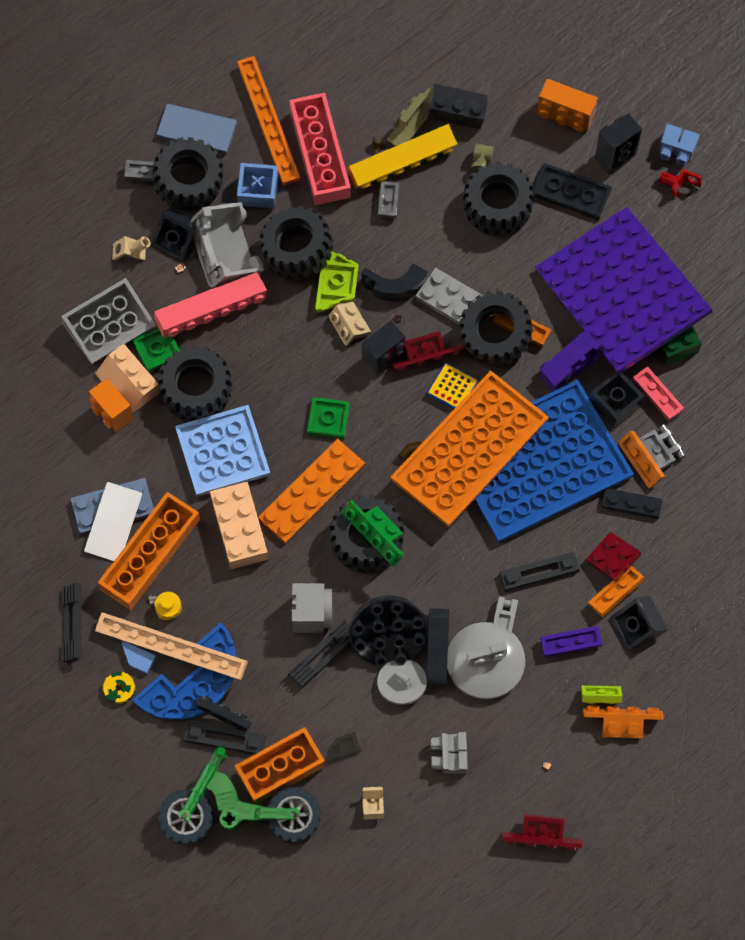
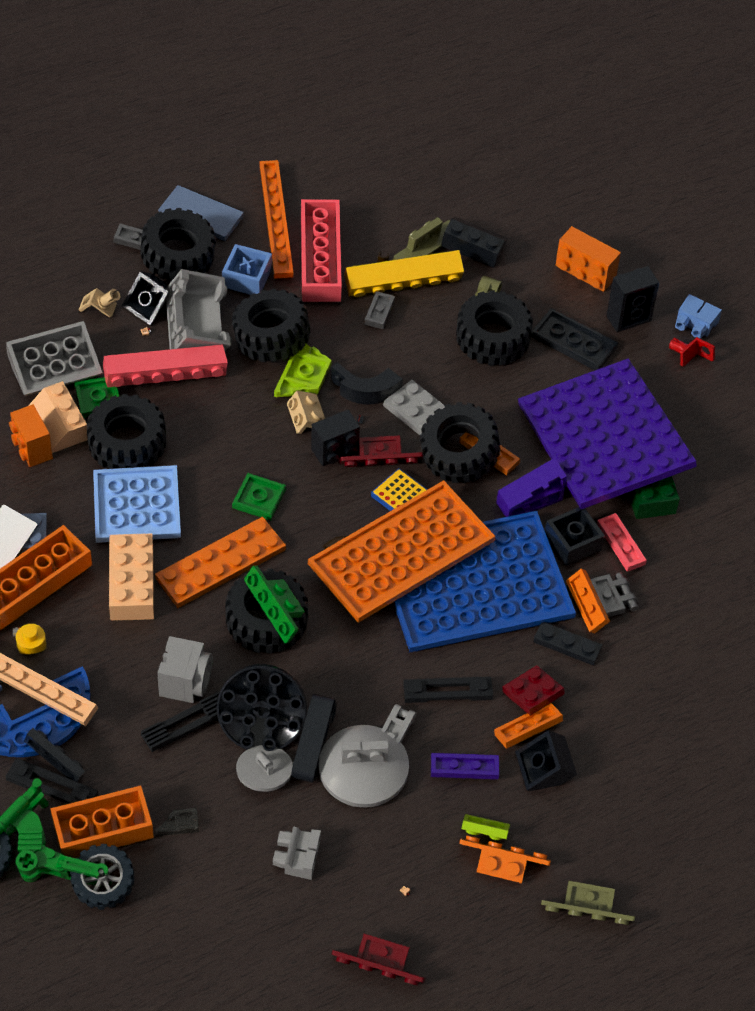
camera: 10 degrees right, 15 degrees down
(373, 803) = (196, 884): tan bracket -> none
(702, 742) = (589, 899): none -> olive bracket

